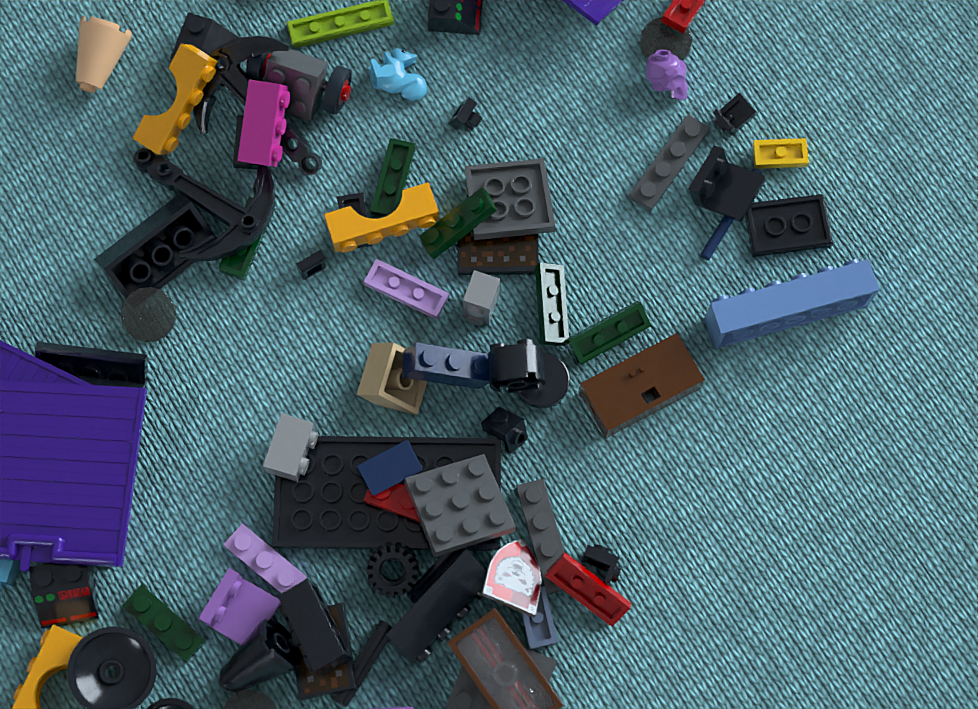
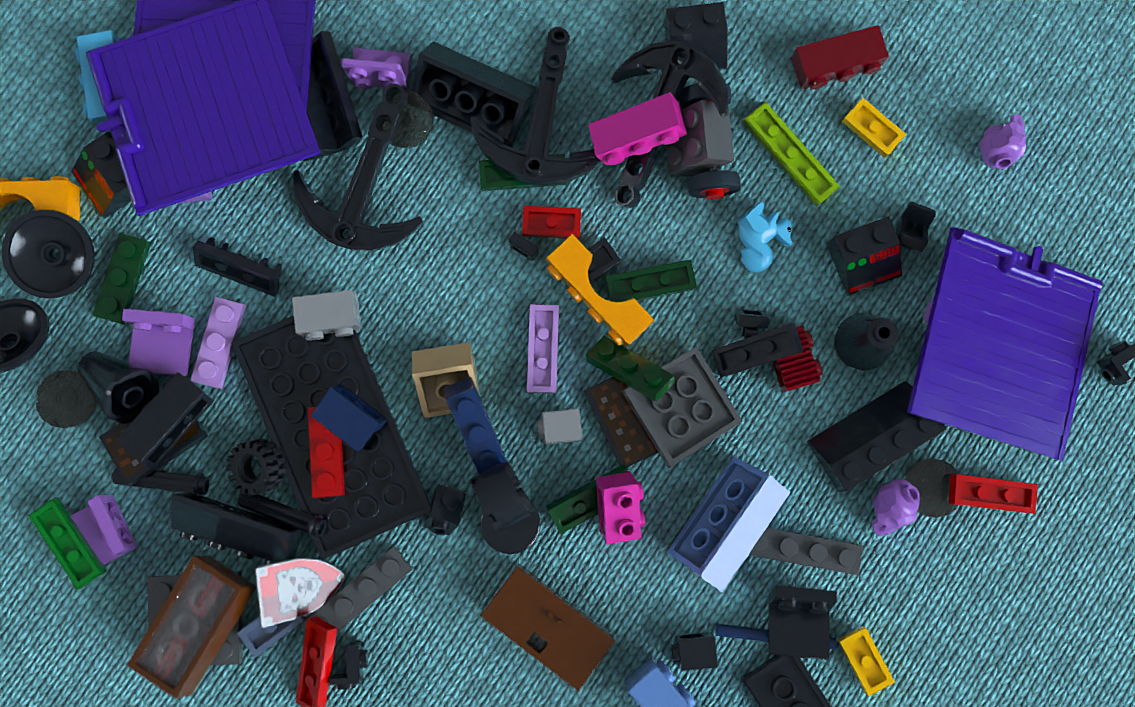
camera: 65 degrees right, 10 degrees up
(92, 316) = (377, 68): none -> medium lavender bracket
(192, 72) = (657, 34): light orange arch -> none
(207, 513) = (237, 267): none -> black plate
(211, 396) = (360, 189): none -> black piece
(301, 234) = (551, 222): none -> red plate
(459, 505) = (338, 504): dark grey plate -> none
(491, 118) = (757, 350): none -> black plate
(511, 96) = (800, 368): none -> dark red brick
(523, 34) = (865, 340): none -> black cone
(569, 283) = (619, 507): none -> dark pink brick
(604, 66) = (872, 438): none -> black slope
(609, 332) = (589, 569): dark green plate -> none
(621, 205) = (728, 522): none -> medium blue slope
(714, 278) = (695, 651): none -> black brick
(734, 114) = (885, 595): black bracket -> none

